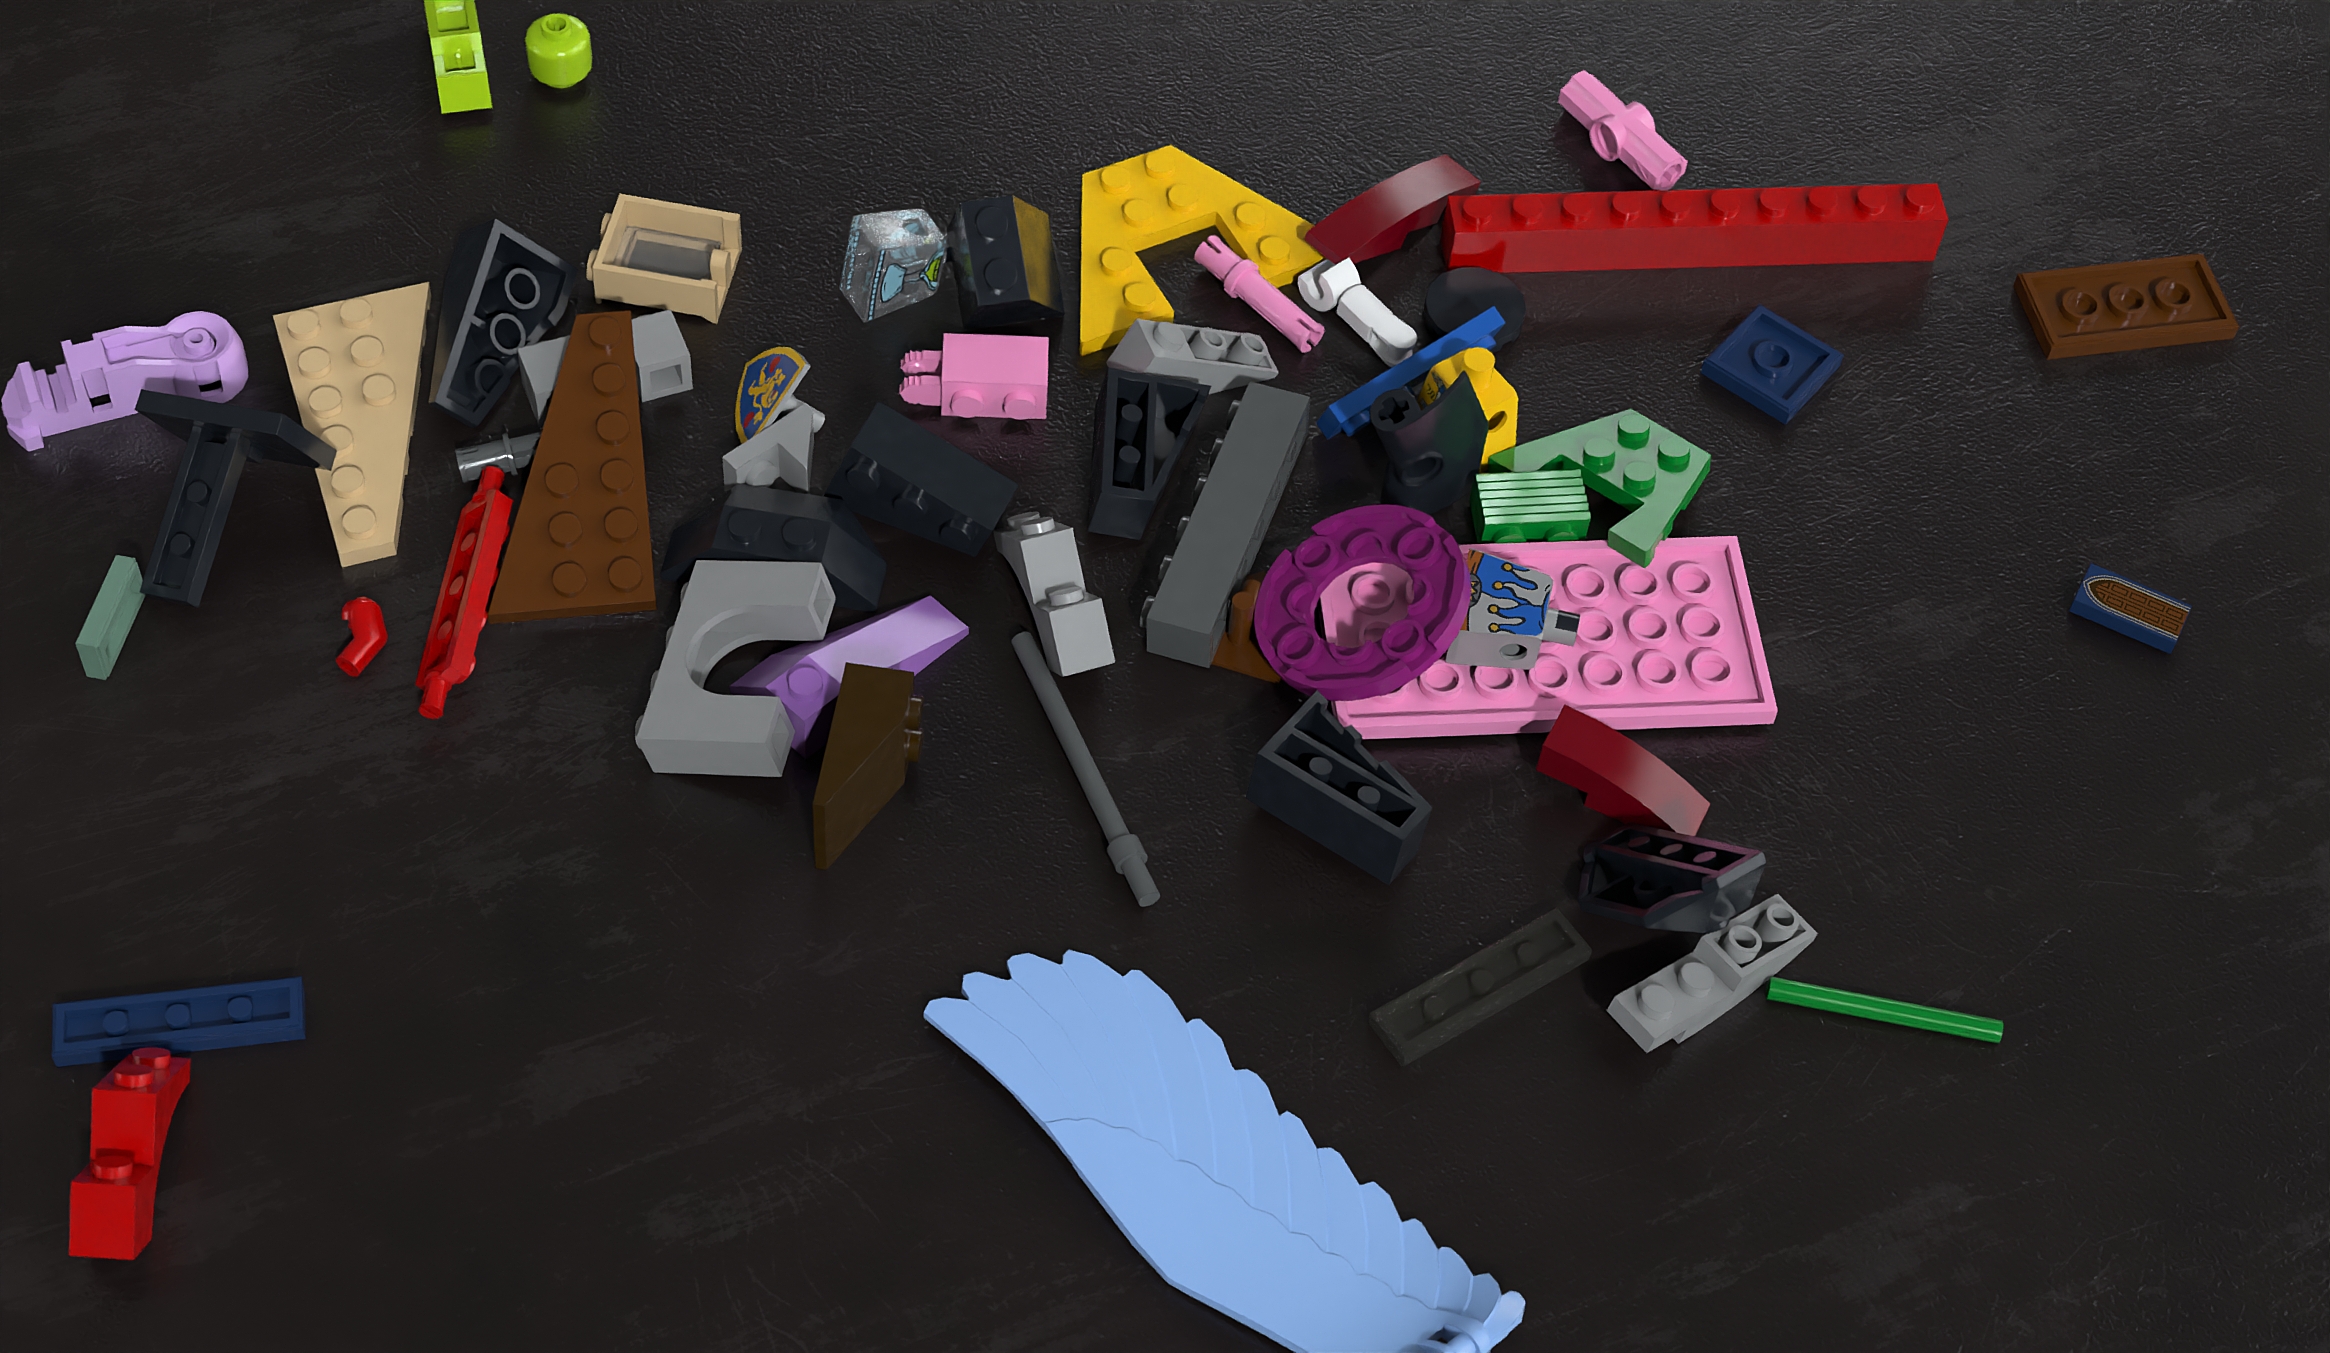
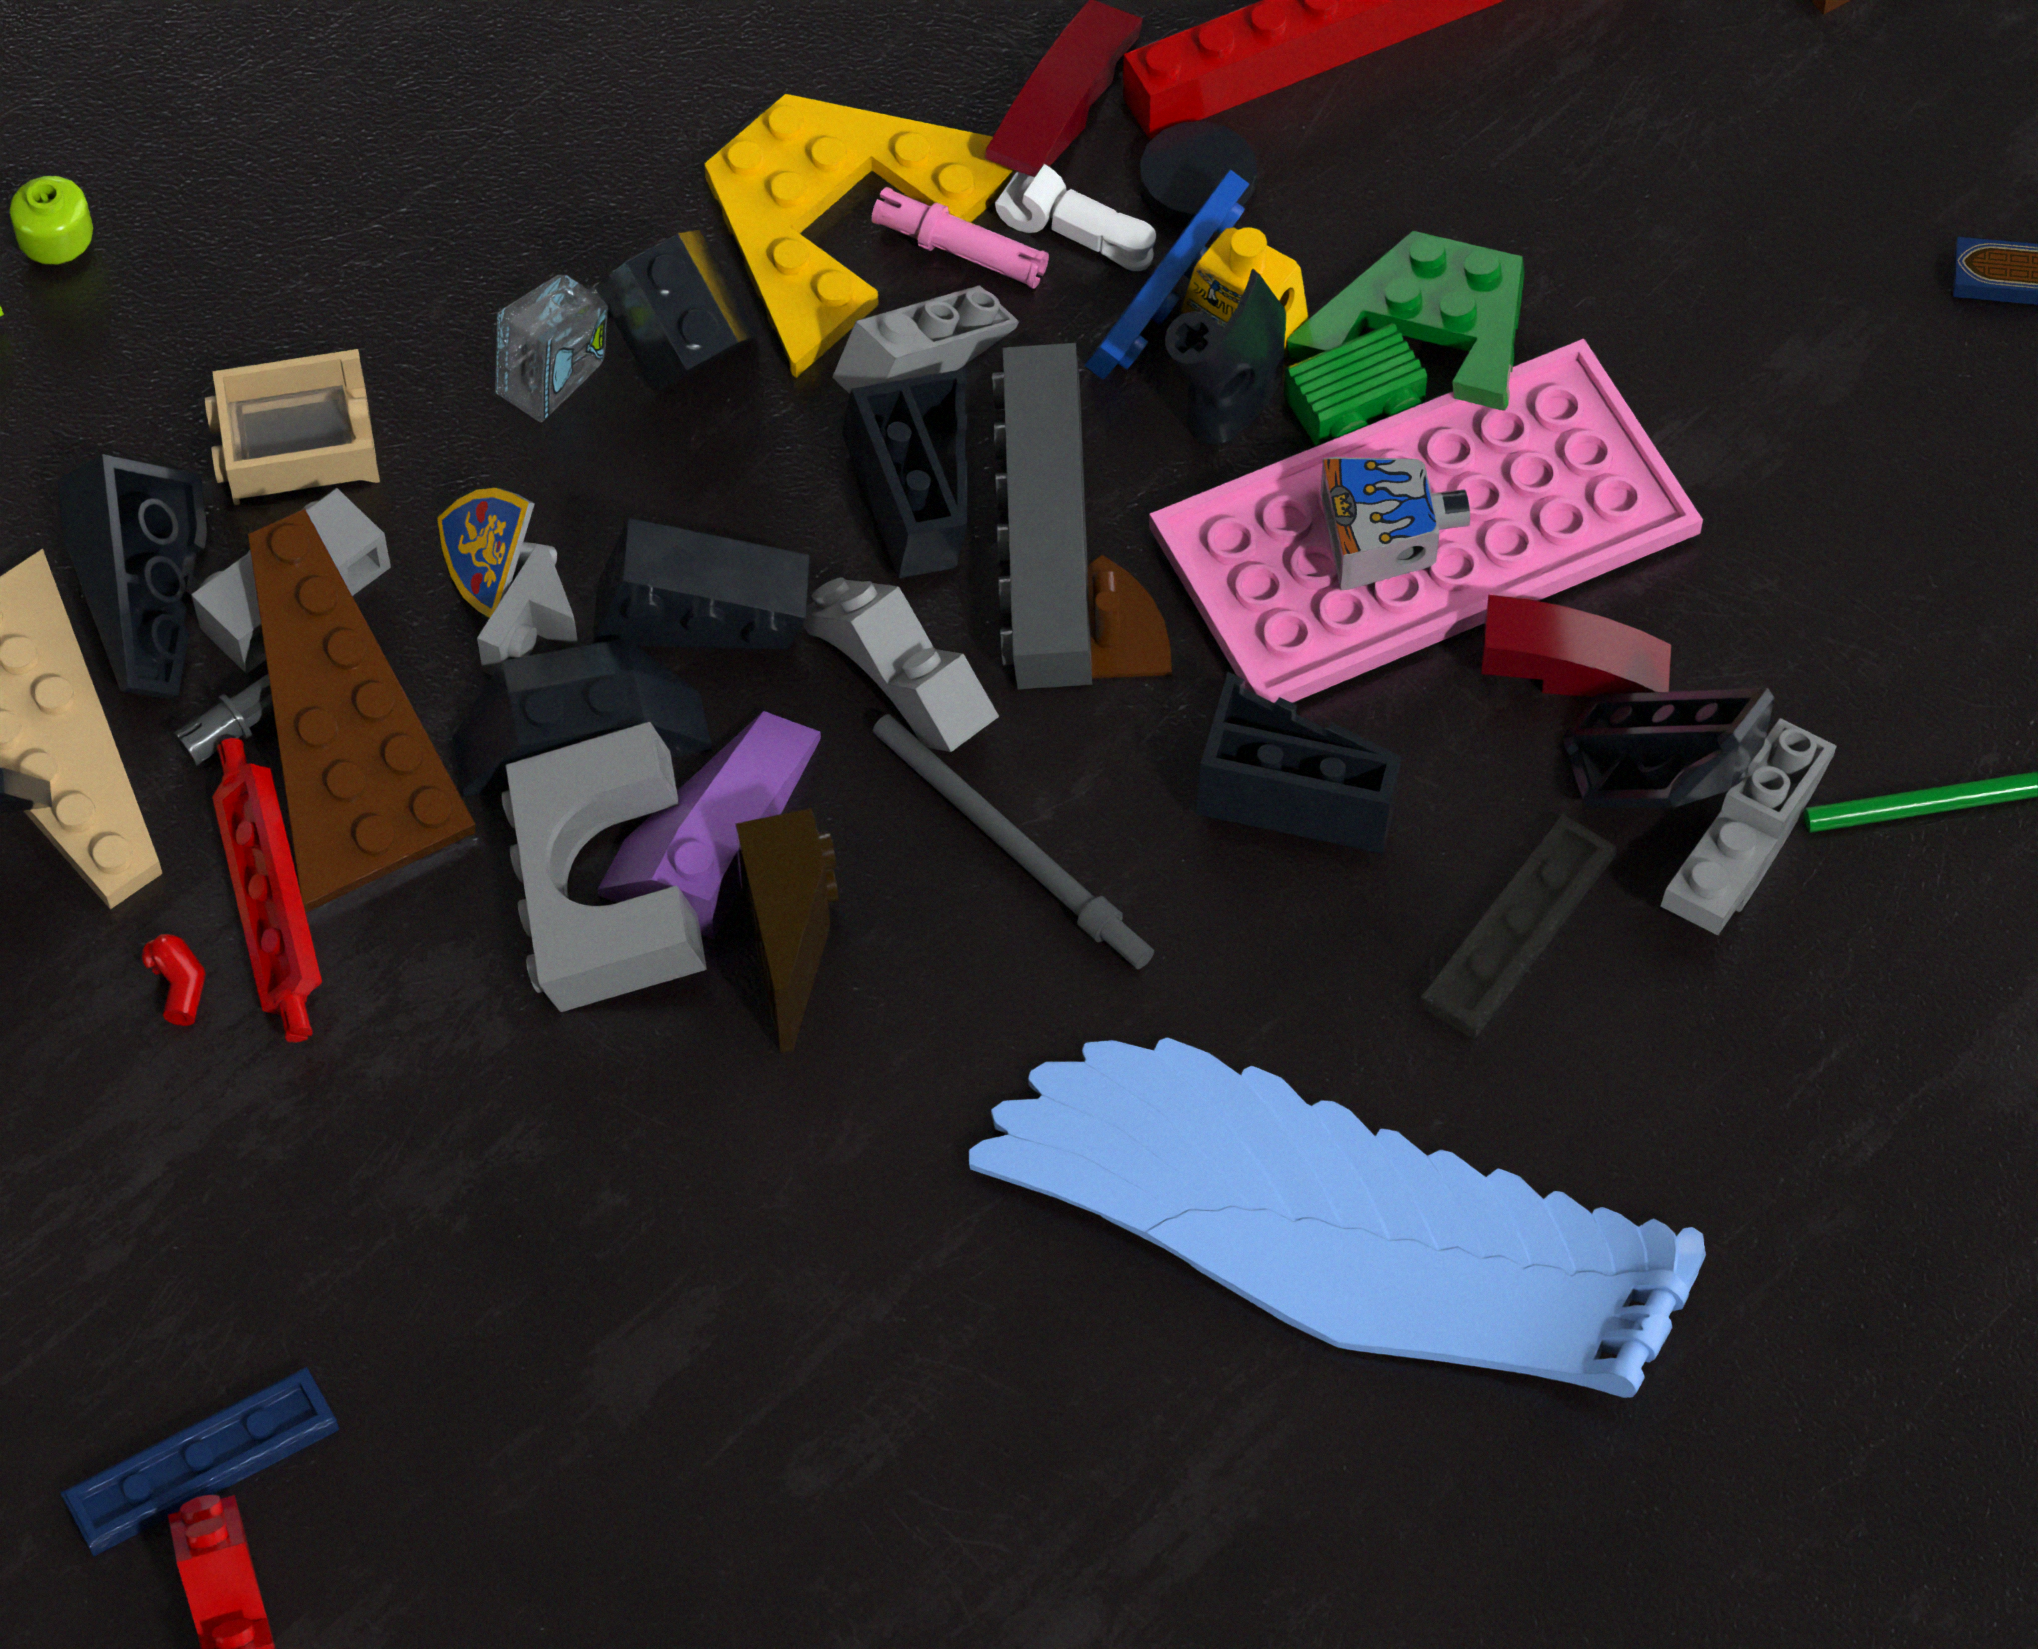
camera: 15 degrees left, 5 degrees up
(980, 376) = (706, 442): bright pink hinge -> none
(1407, 647) = (1177, 504): magenta plate -> none
(1771, 364) = (1538, 123): dark blue tile -> none

